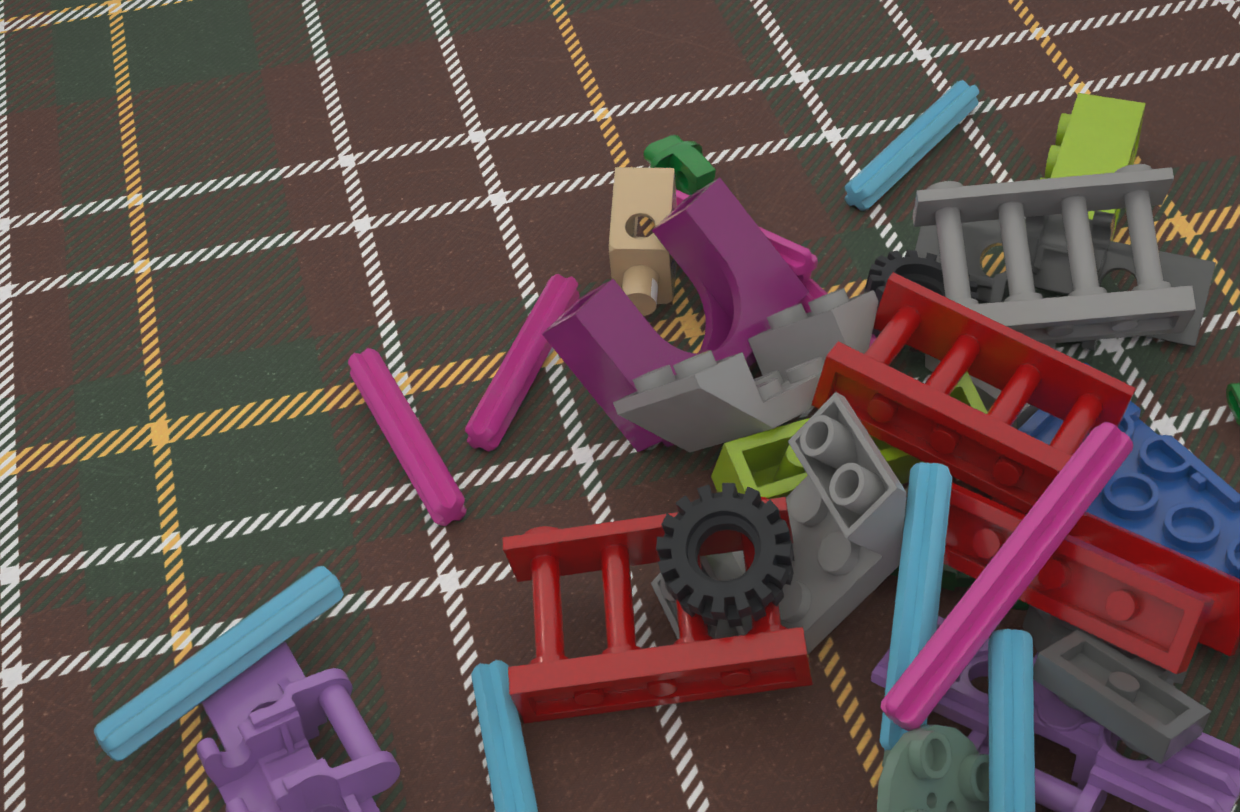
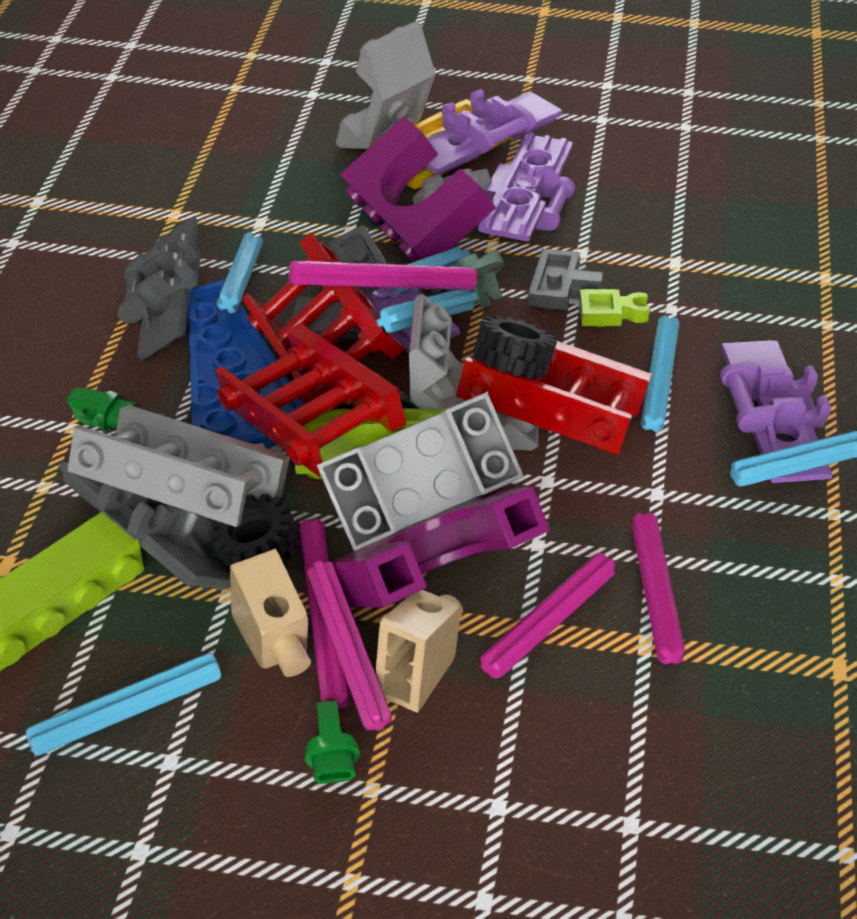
camera: 160 degrees left, 0 degrees up
(832, 213) = (270, 613): none -> tan torso

